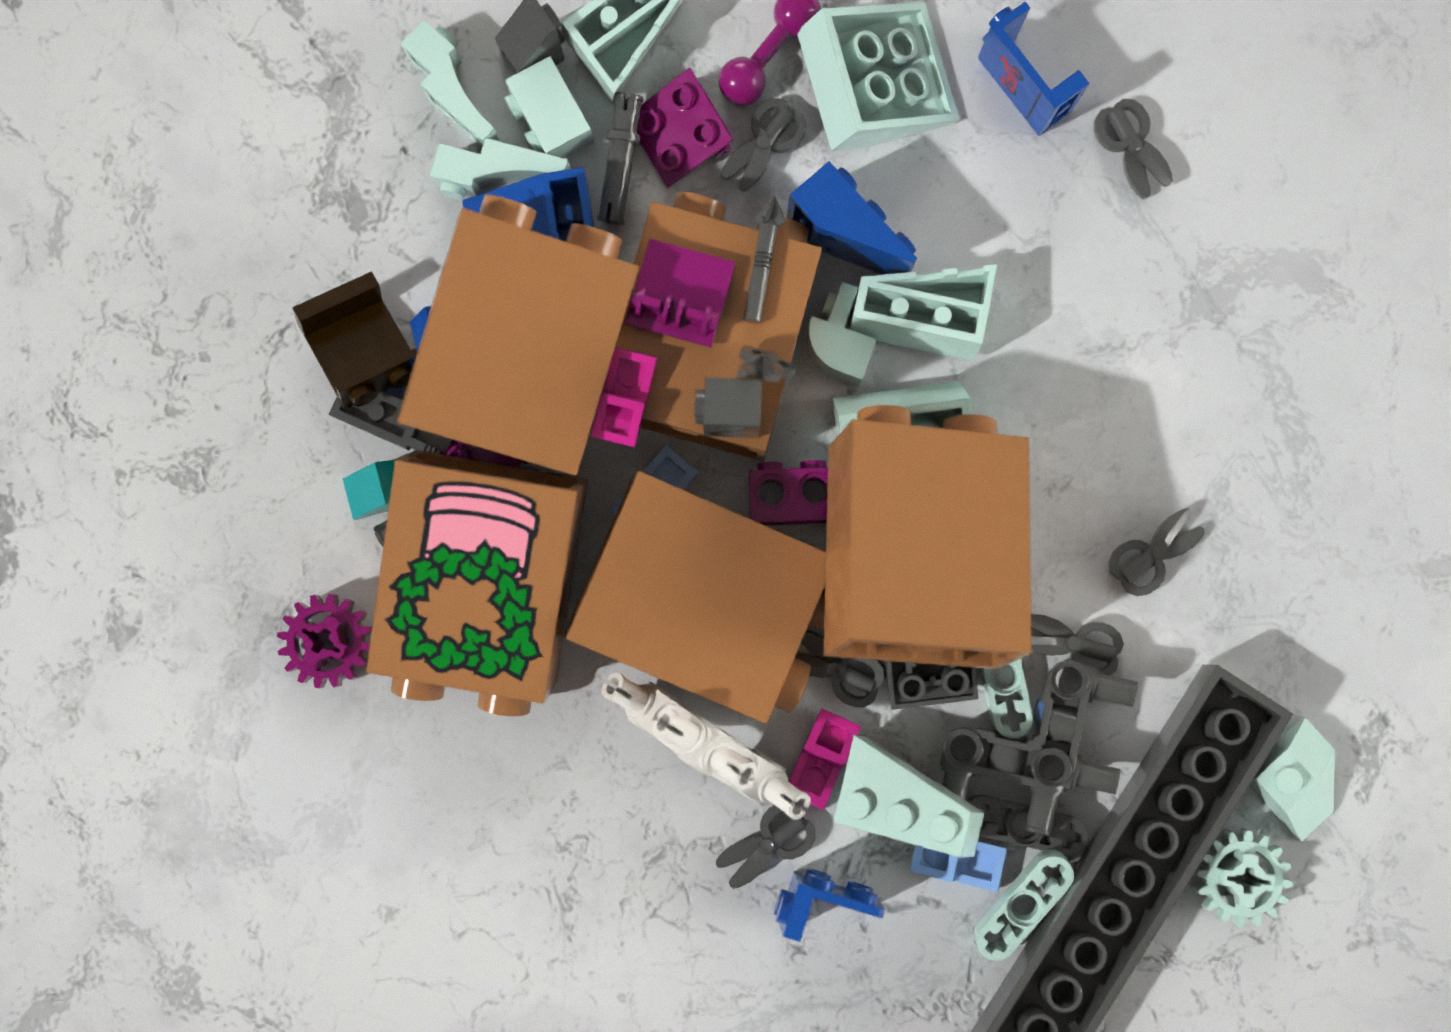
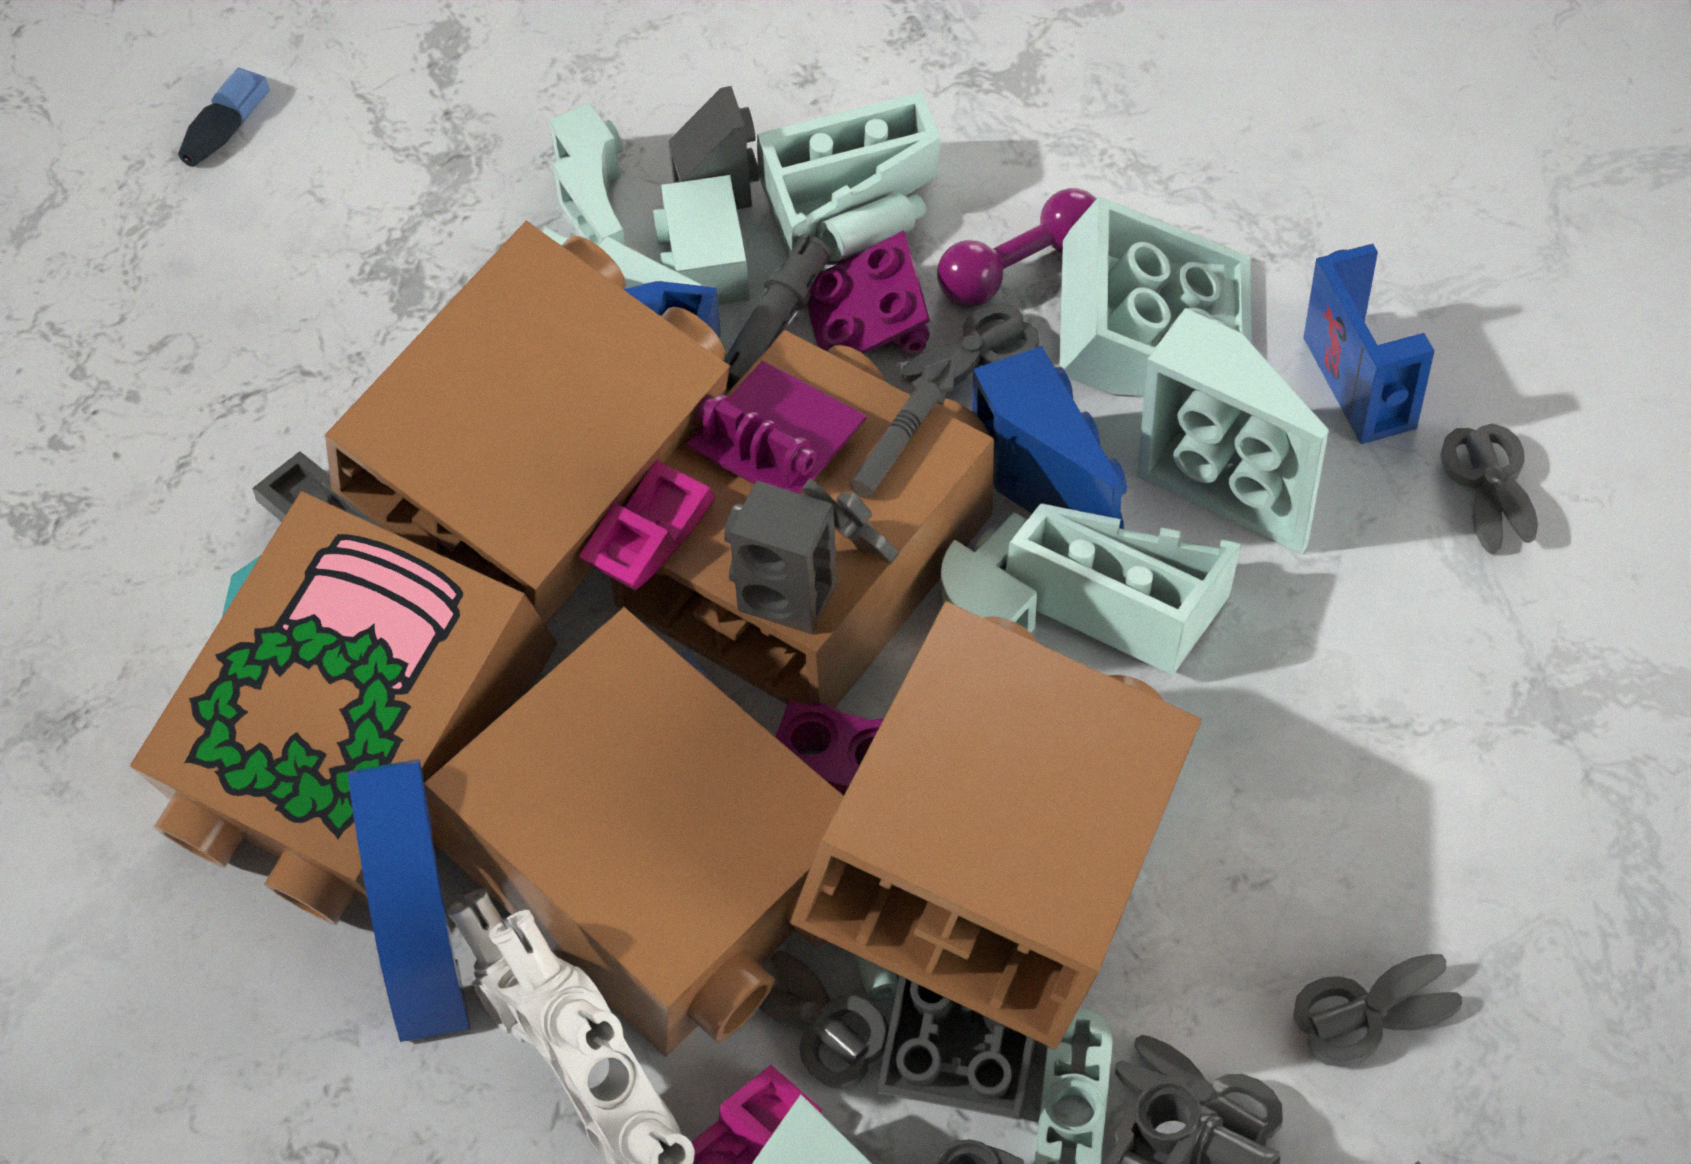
camera: 20 degrees right, 30 degrees down
(150, 101) = (224, 116): none -> piece
(335, 625) = (78, 777): magenta gear -> none
(356, 341) = (310, 391): dark brown panel -> none
(574, 696) = (407, 900): none -> blue slope
(659, 60) = (870, 224): none -> light aqua cylinder
(970, 181) = (1230, 432): none -> light aqua slope

